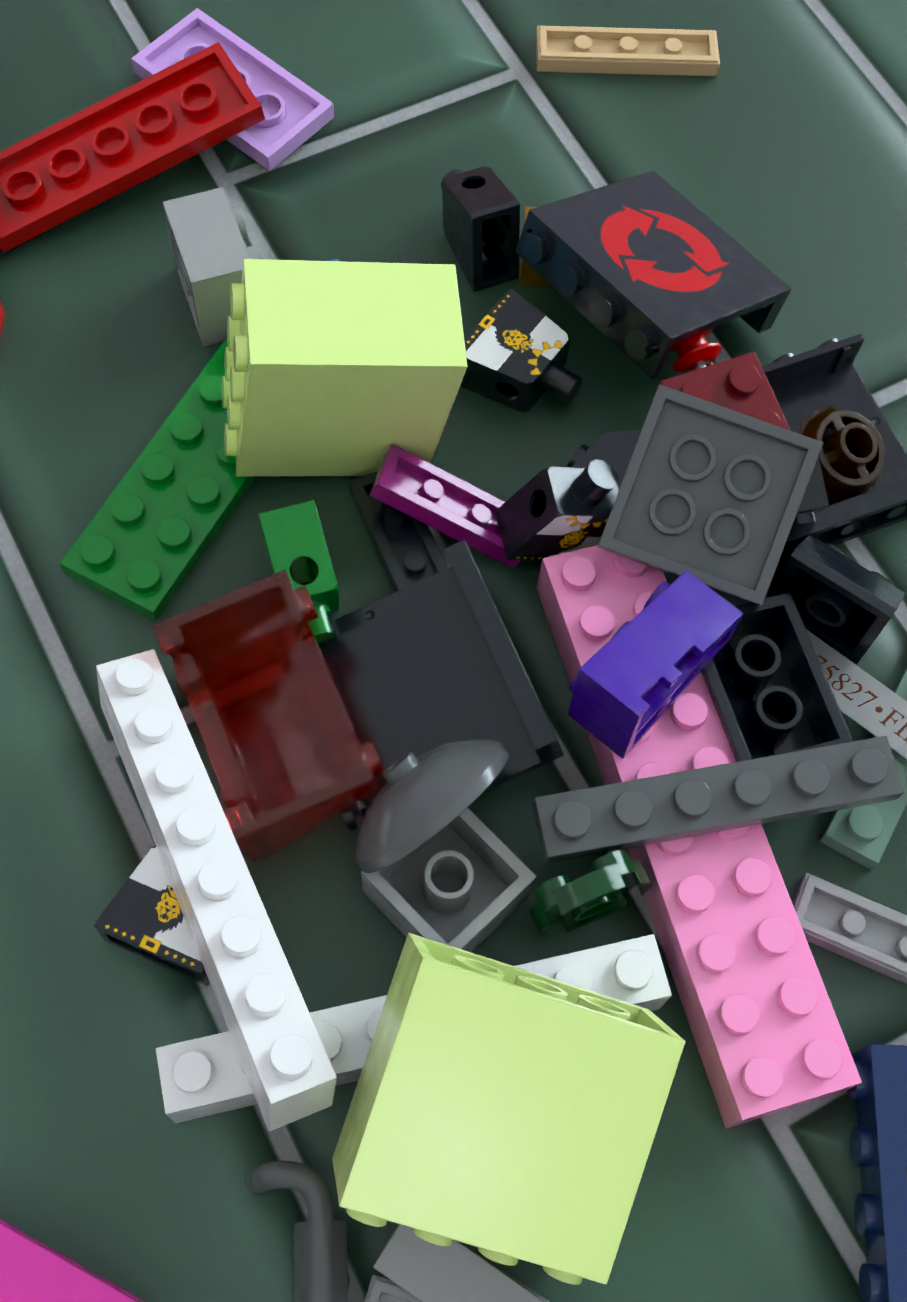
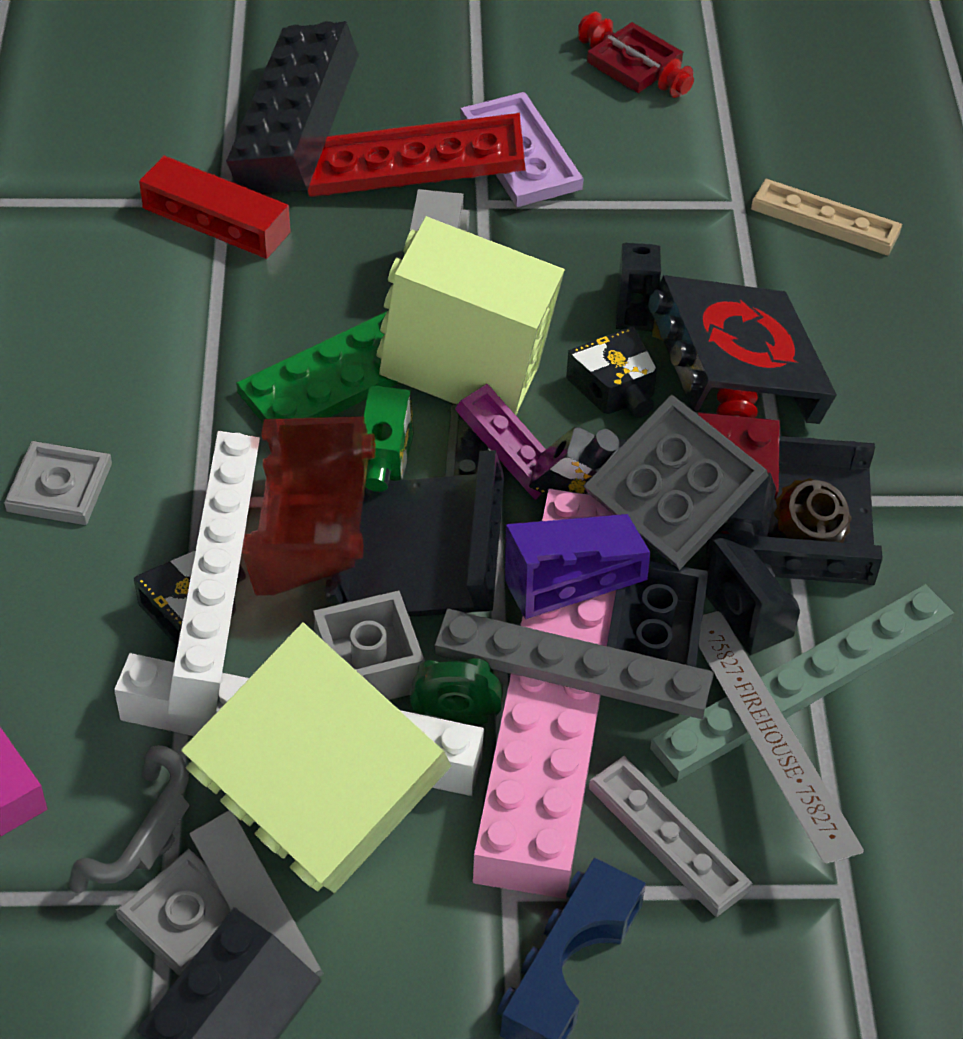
camera: 30 degrees right, 15 degrees down
(424, 798) = (376, 573): dark grey dish -> none

